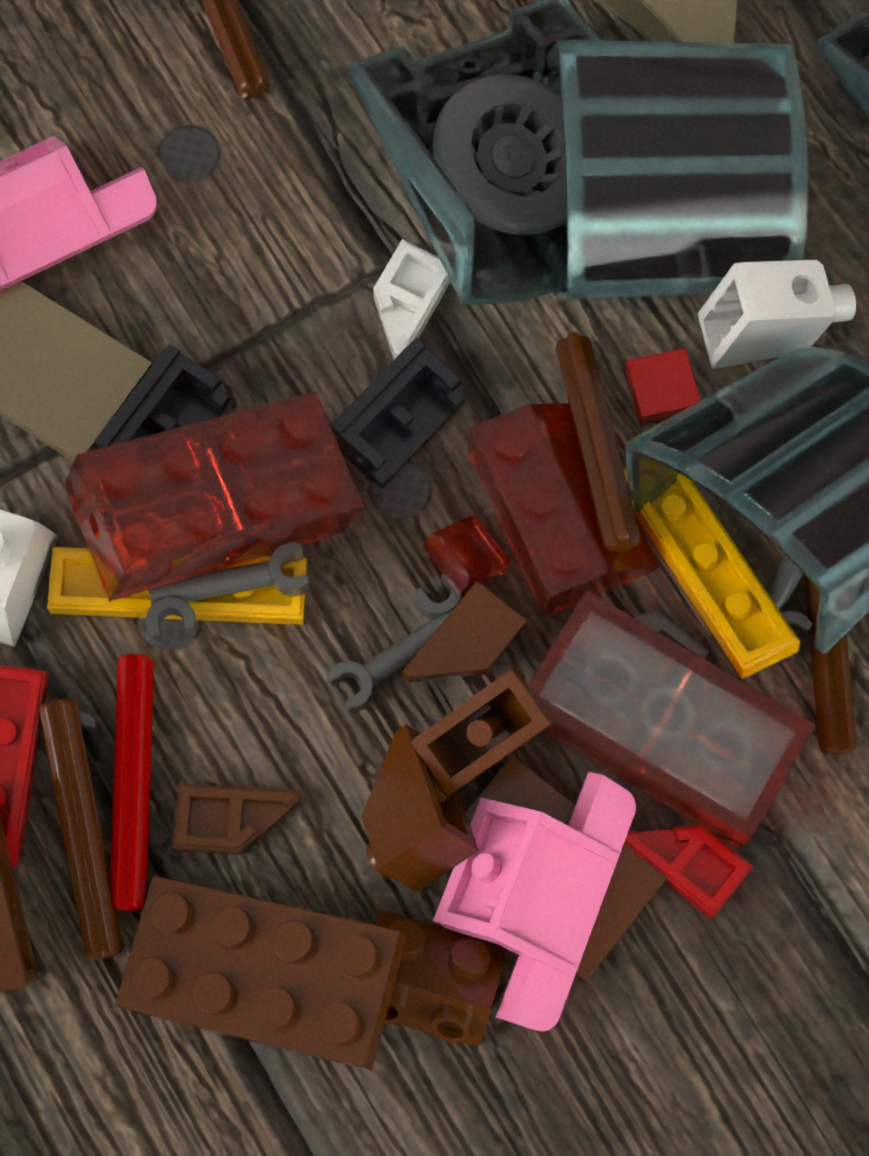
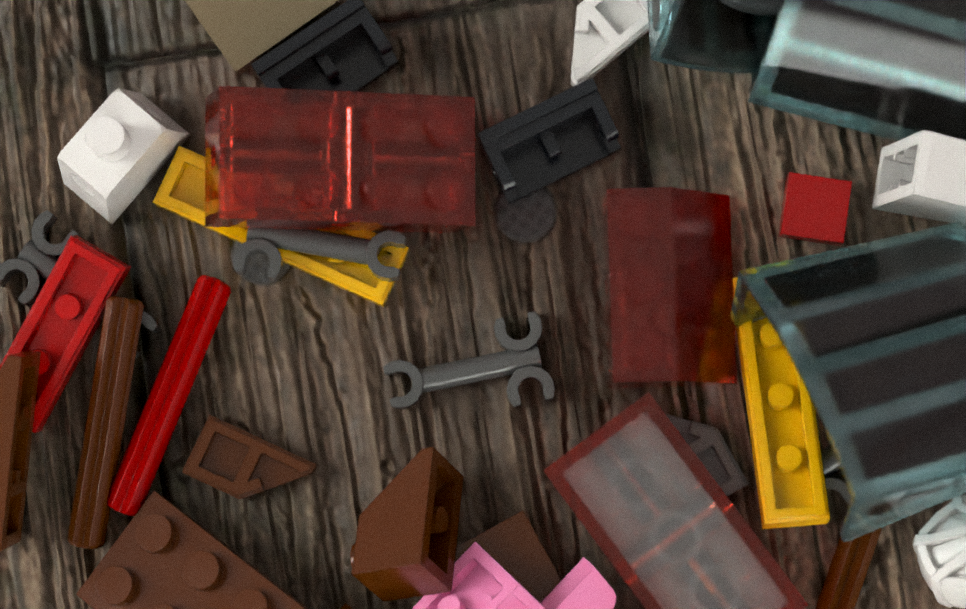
camera: 30 degrees right, 10 degrees up
(466, 554) = (558, 303): clear red tile -> none
(468, 638) = (525, 387): reddish brown tile -> none
(481, 731) = (495, 485): reddish brown slope -> none
(597, 444) = (724, 246): reddish brown axle -> none

